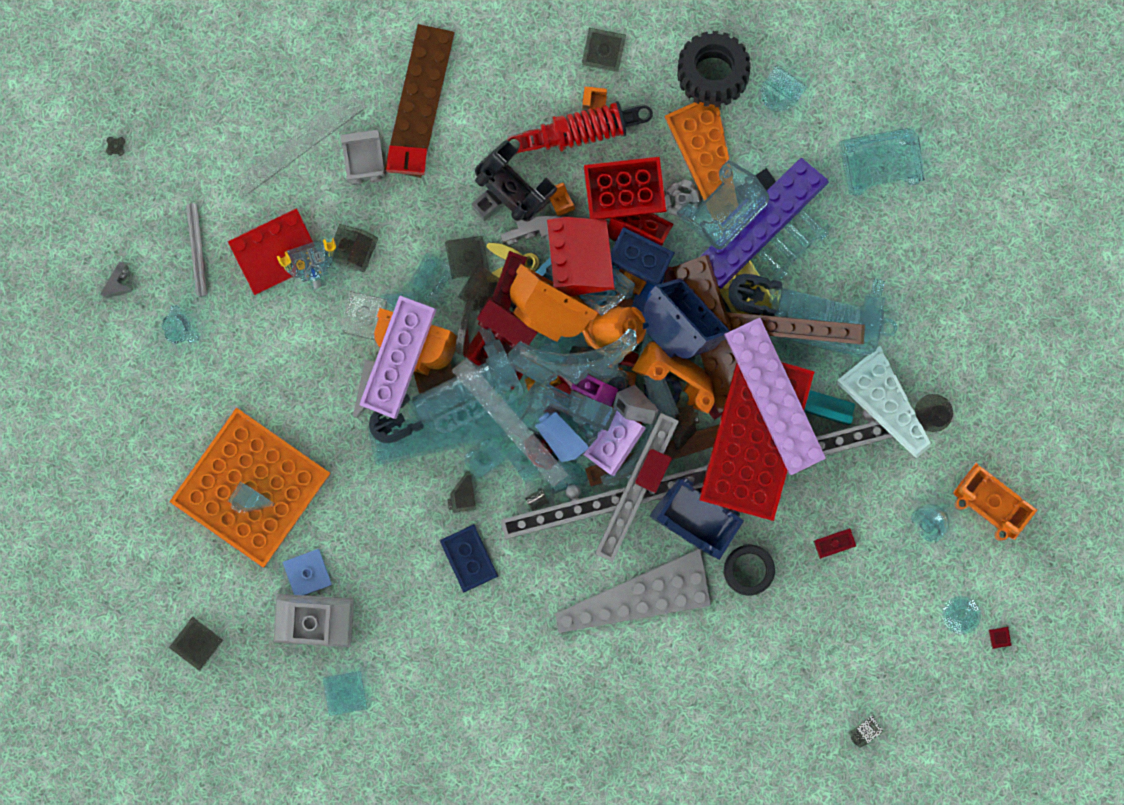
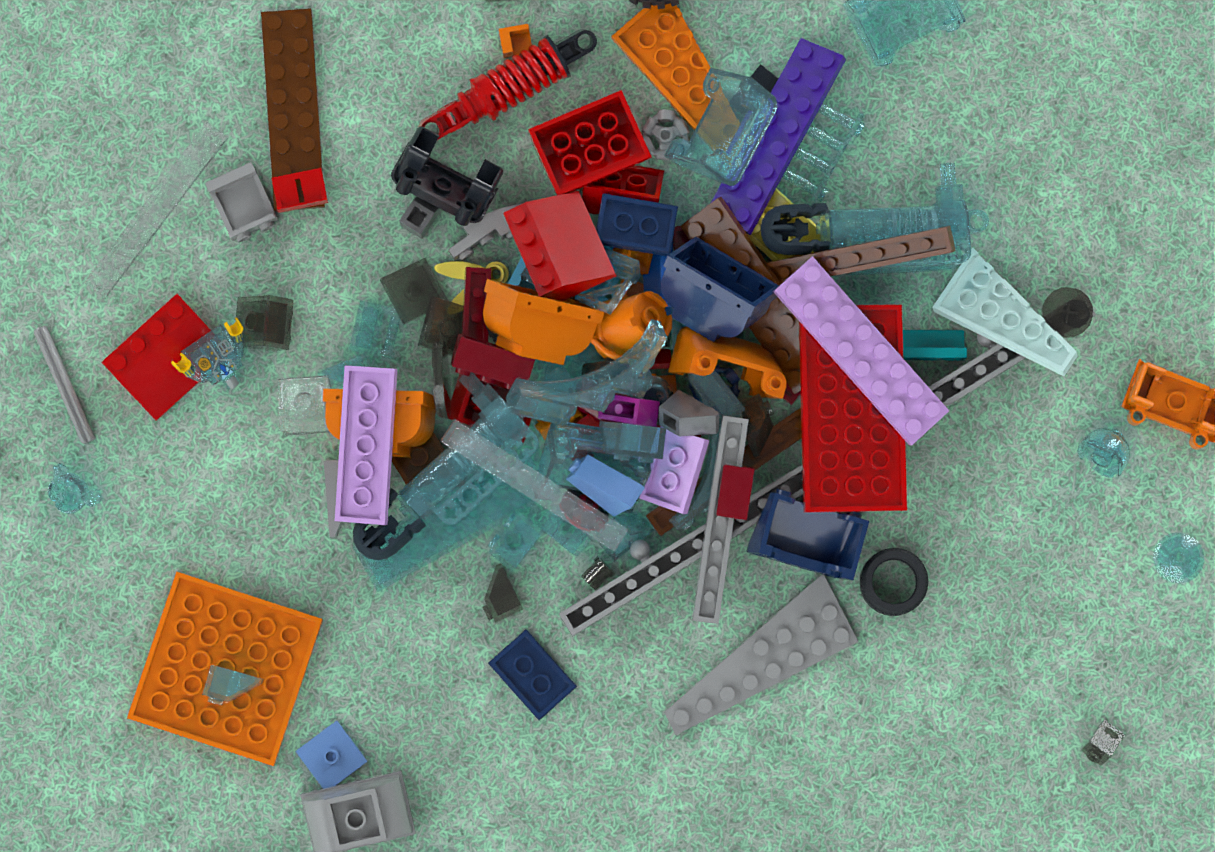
camera: 20 degrees left, 0 degrees up
(561, 200) = (512, 183): orange bracket -> none
(834, 543) = (991, 515): dark red plate -> none

